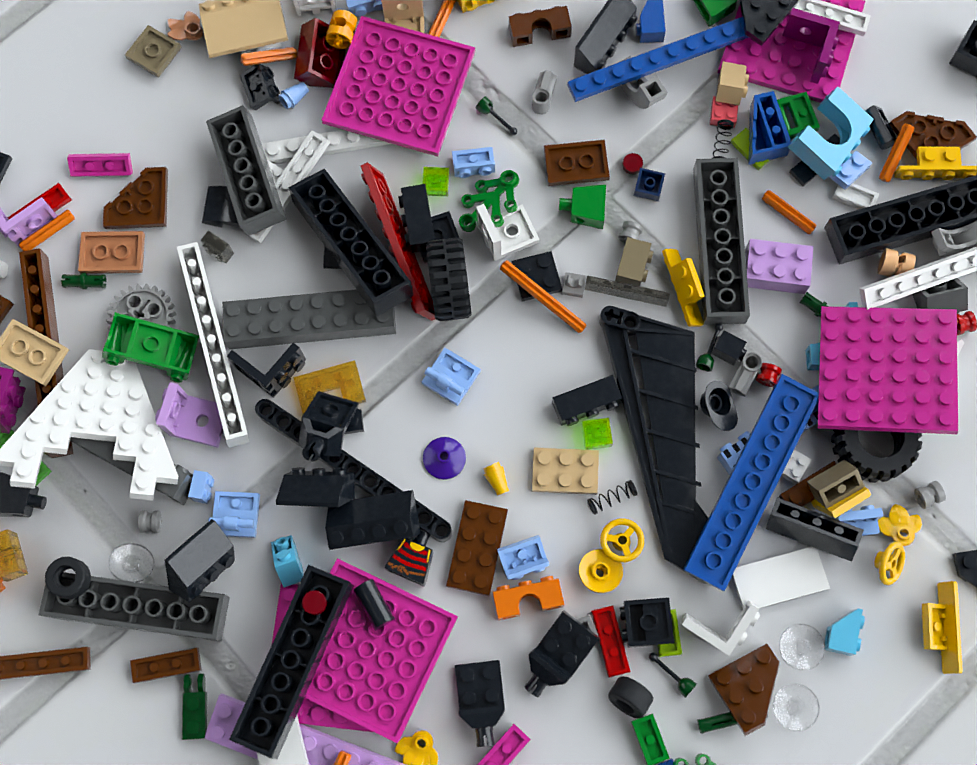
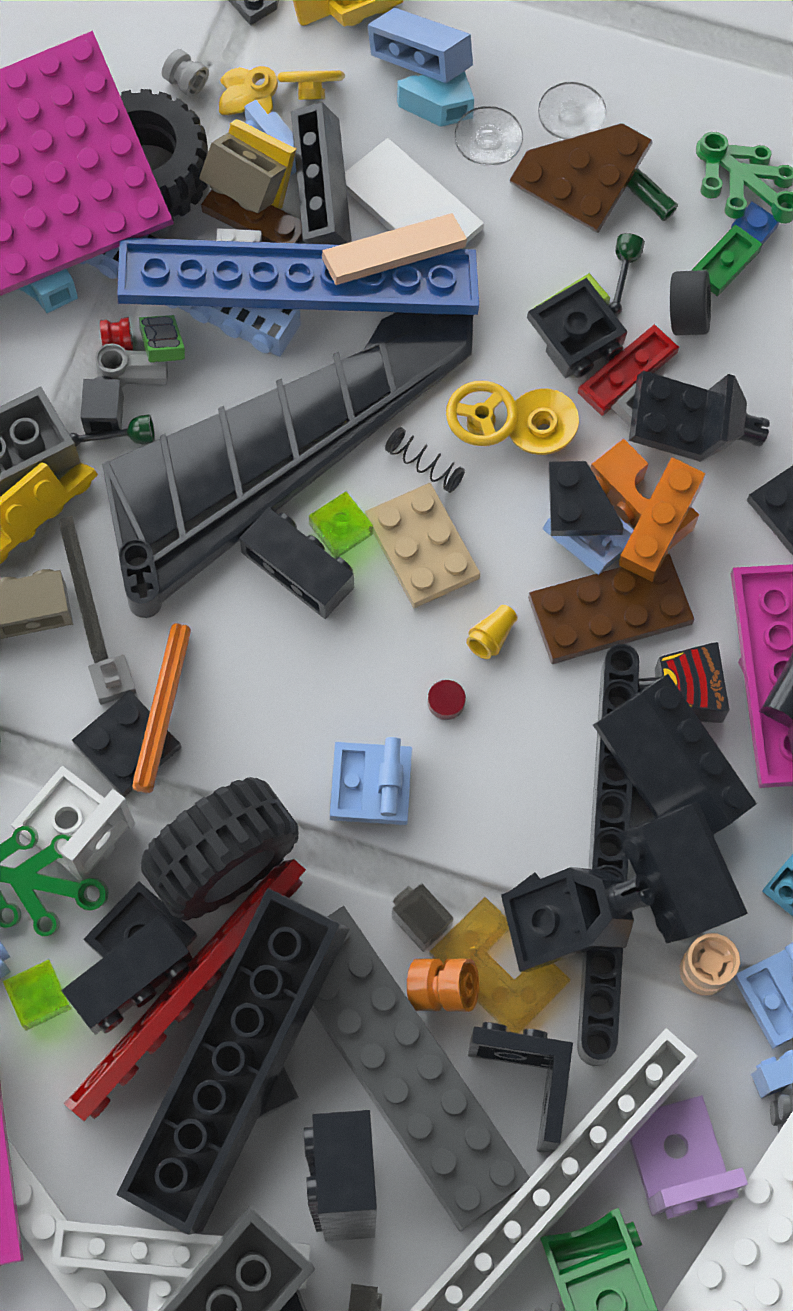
camera: 125 degrees left, 5 degrees down
(253, 235) = (341, 1175): none -> black brick
(267, 481) = (709, 964): none -> light nougat wheel
(333, 353) = (443, 985): none -> orange wheel
(372, 364) = (421, 916): none -> clear smoke brick
(444, 468) = (499, 745): dark purple dish -> none
(474, 437) = (446, 699): none -> dark red tile
(502, 591) = (661, 519): none -> orange arch
(539, 556) = (579, 502): none -> black wing
(719, 405) = (203, 378): black piece -> none
(736, 634) = (527, 211): white bracket -> none
(743, 541) = (394, 248): none -> light nougat tile
(751, 393) = (161, 338): none -> tile
(881, 636) = (420, 45): none -> medium blue brick

